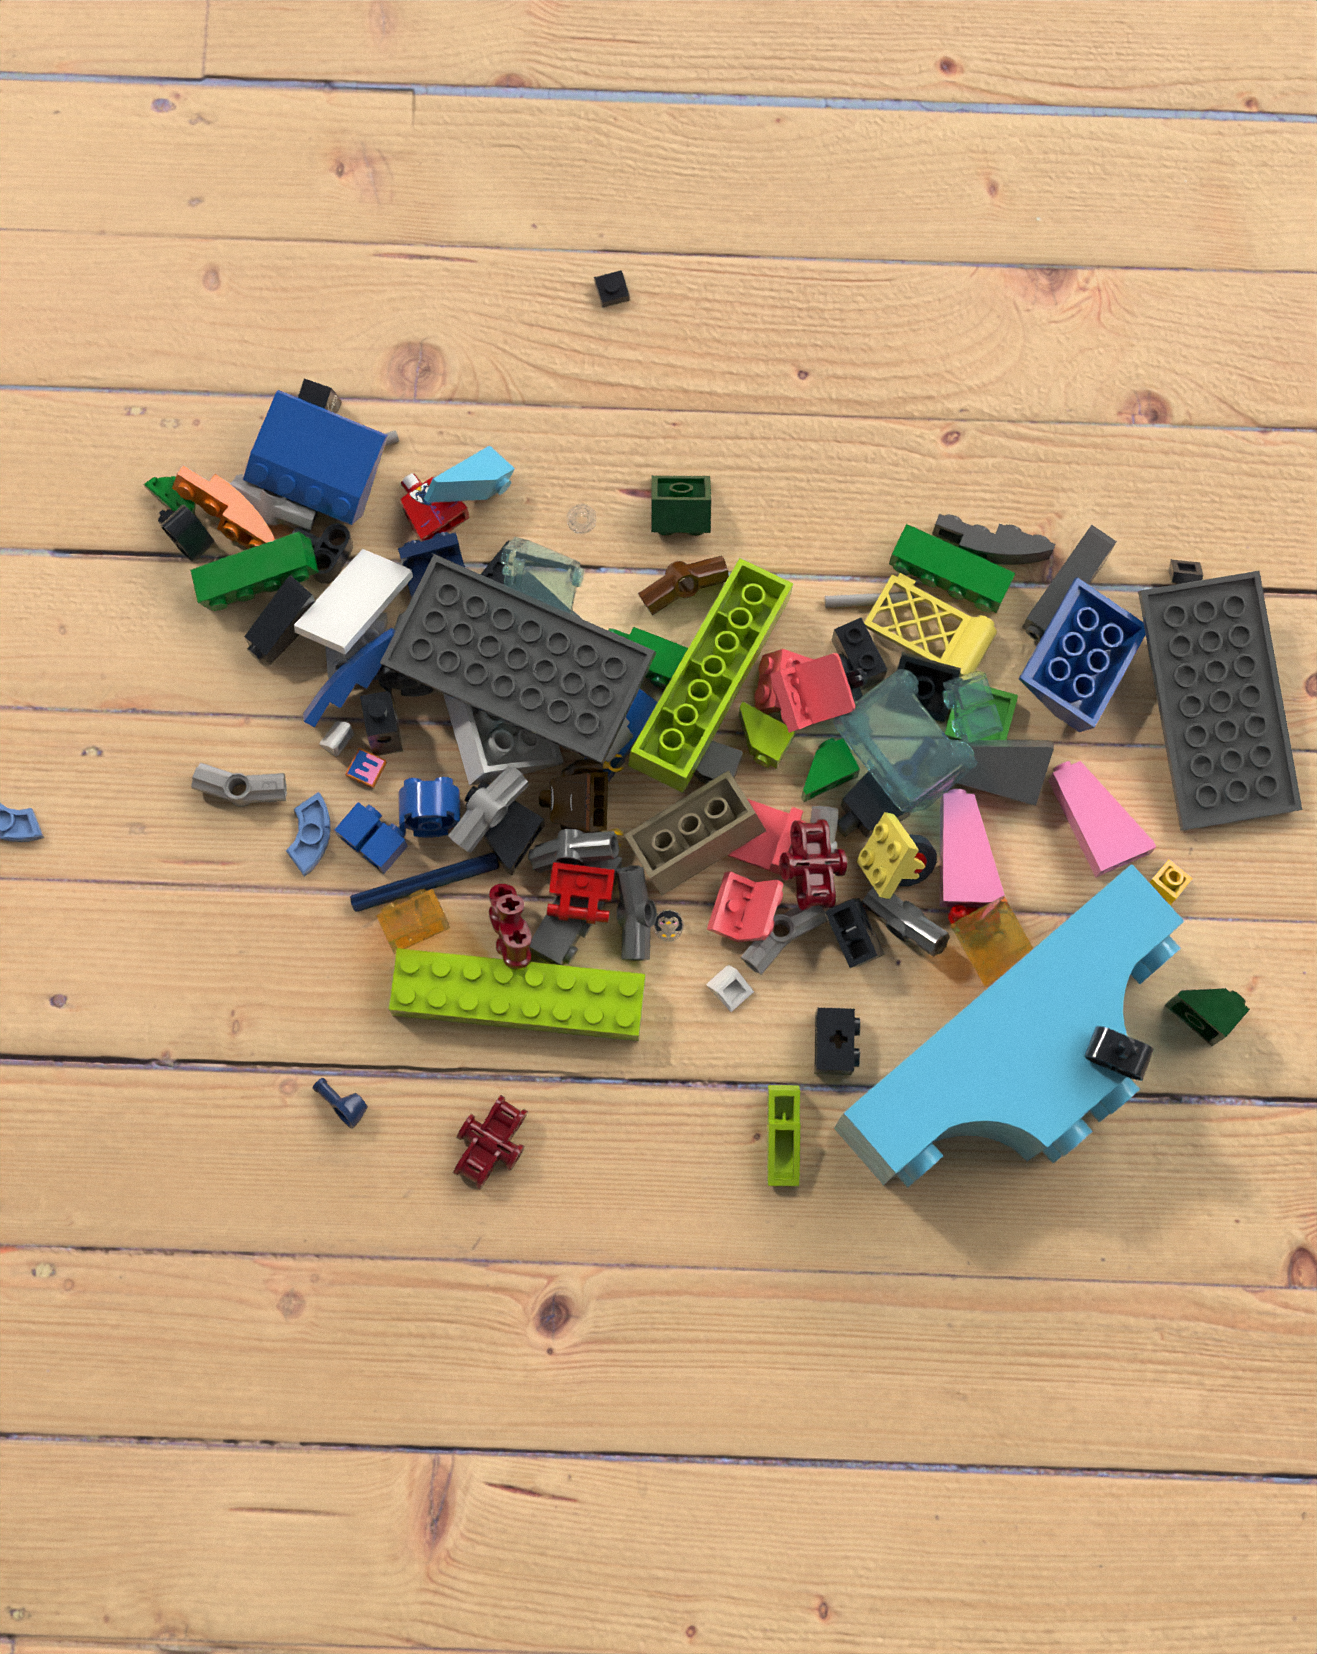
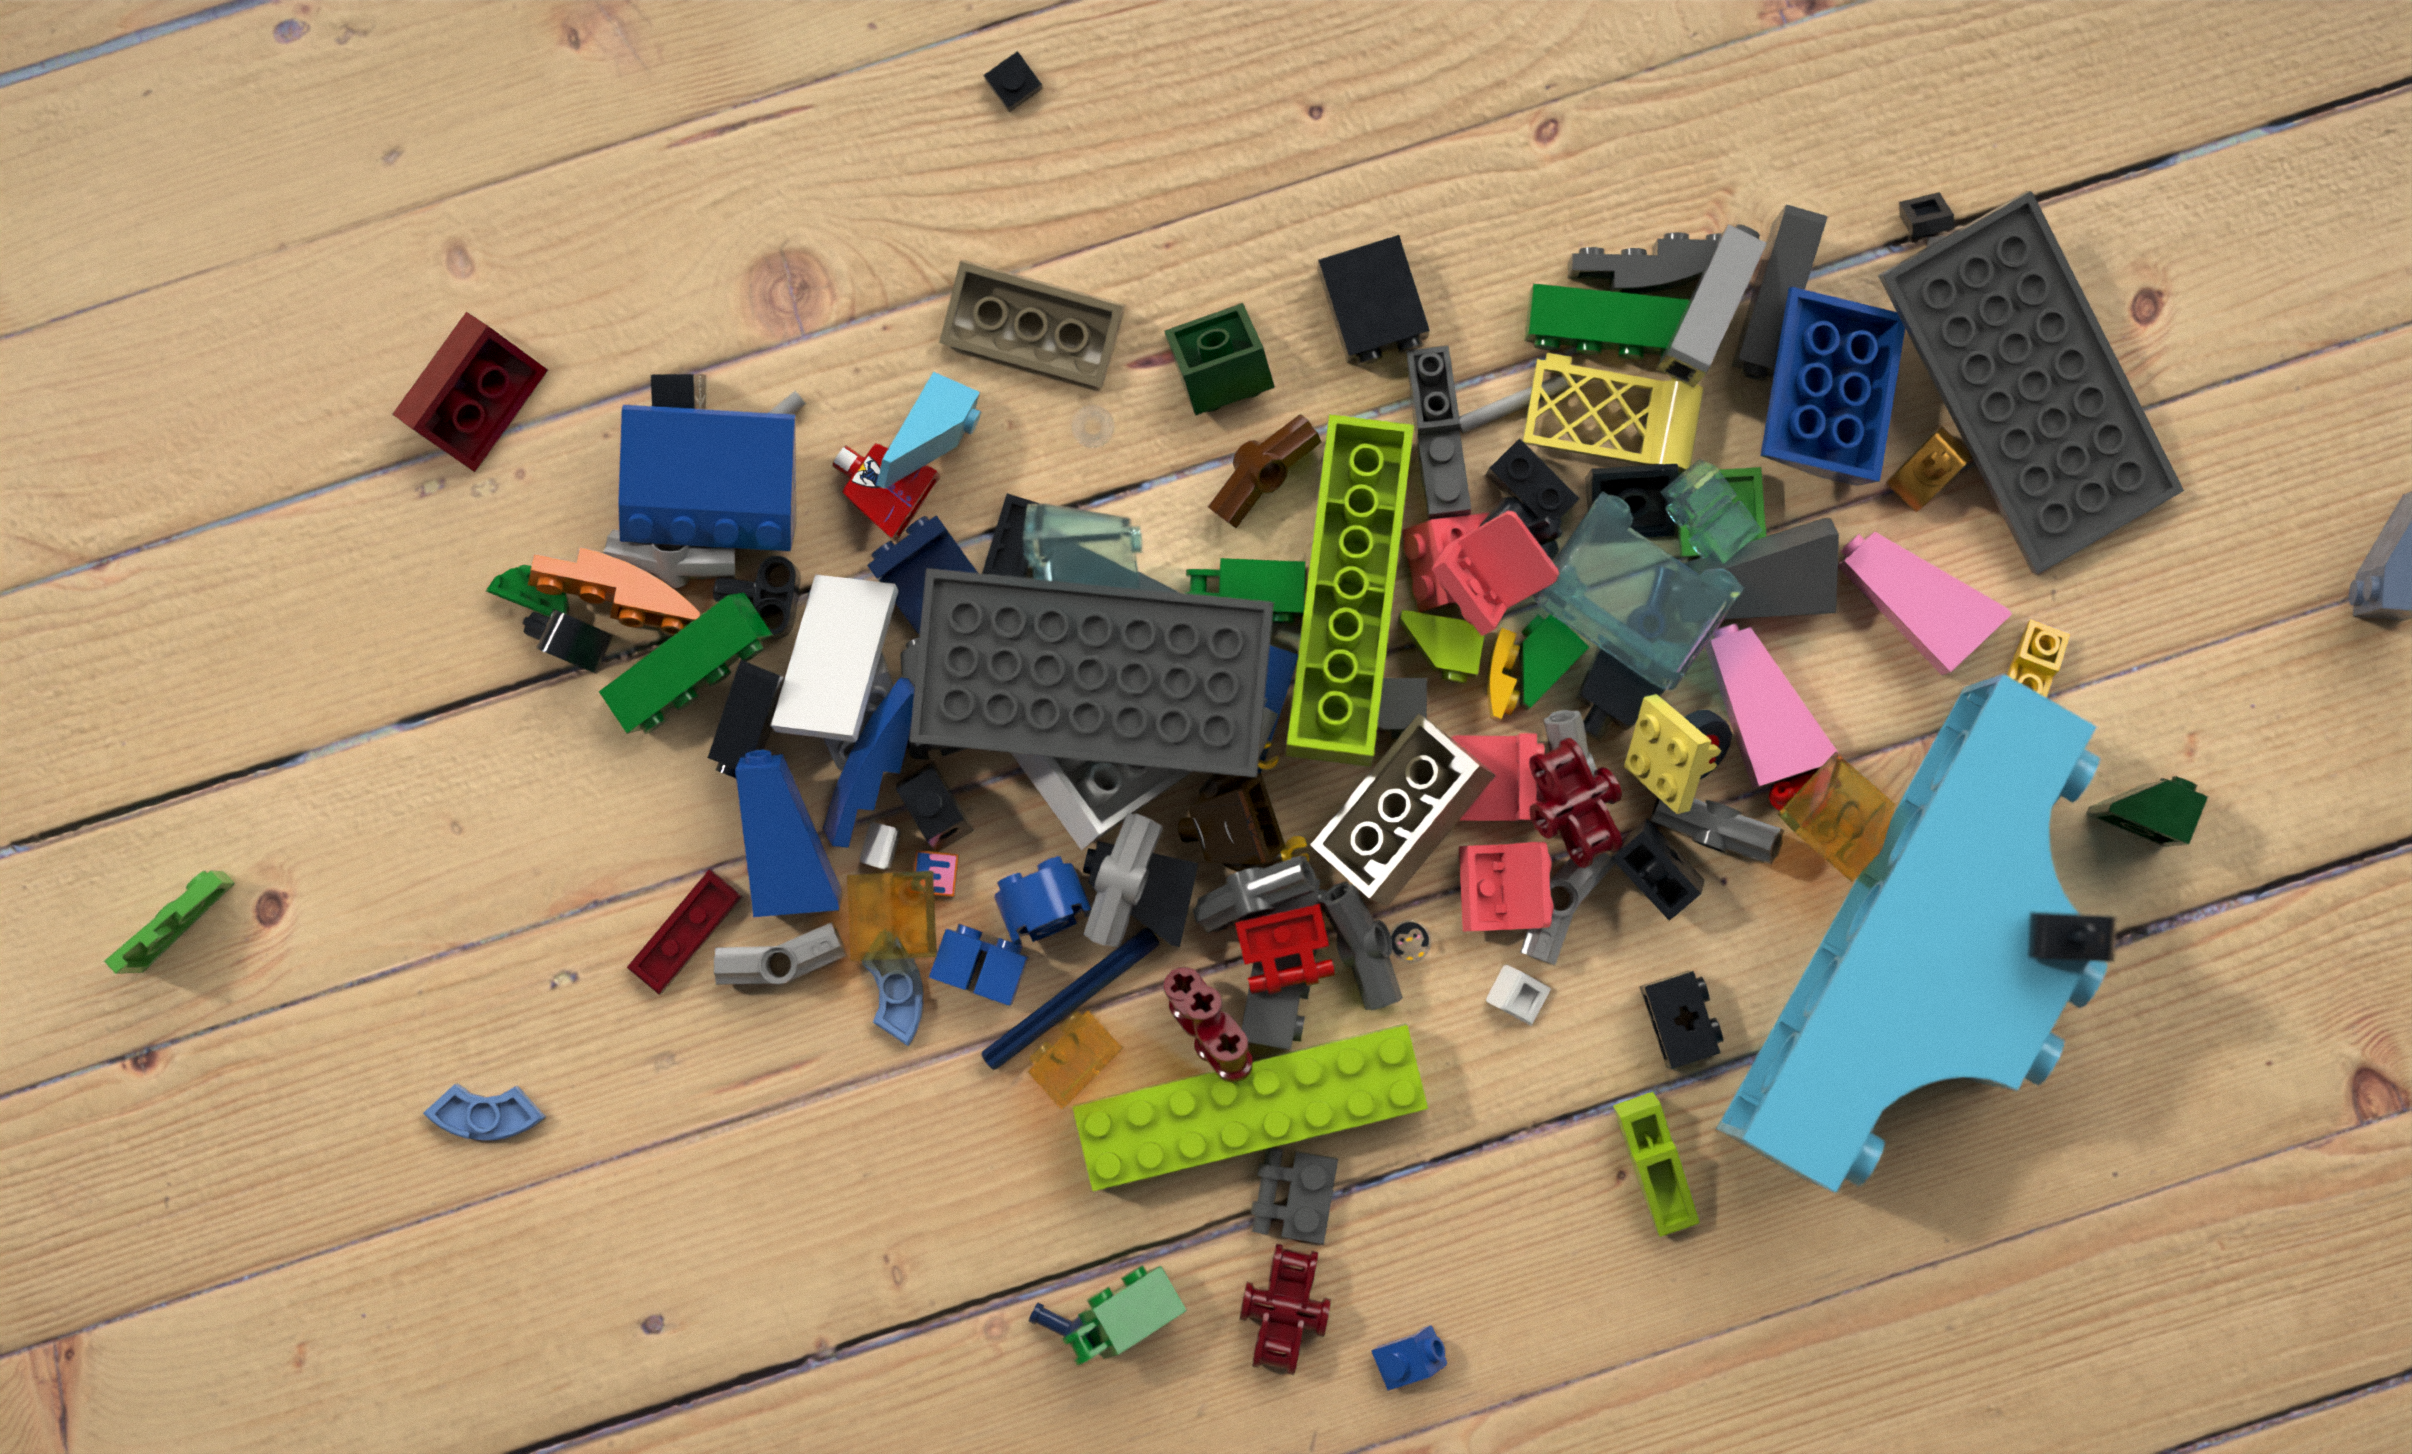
camera: 15 degrees left, 10 degrees up
(184, 748) = (685, 931): none -> dark red tile
(185, 358) = (470, 391): none -> dark red slope
(270, 707) = (781, 844): none -> blue slope
(326, 778) = (888, 909): none -> clear yellow slope
(379, 1102) = (1126, 1315): none -> brick
(535, 1073) = (1308, 1195): none -> dark grey plate
(564, 1207) = (1410, 1358): none -> blue bracket
(566, 440) = (1032, 323): none -> dark tan slope
(792, 776) = (1500, 687): none -> yellow slope
(796, 501) = (1373, 300): none -> black brick
(809, 598) = (1438, 432): none -> dark grey slope
(1018, 574) = (1712, 305): none -> slope
(1132, 736) = (1929, 469): none -> pearl gold beam

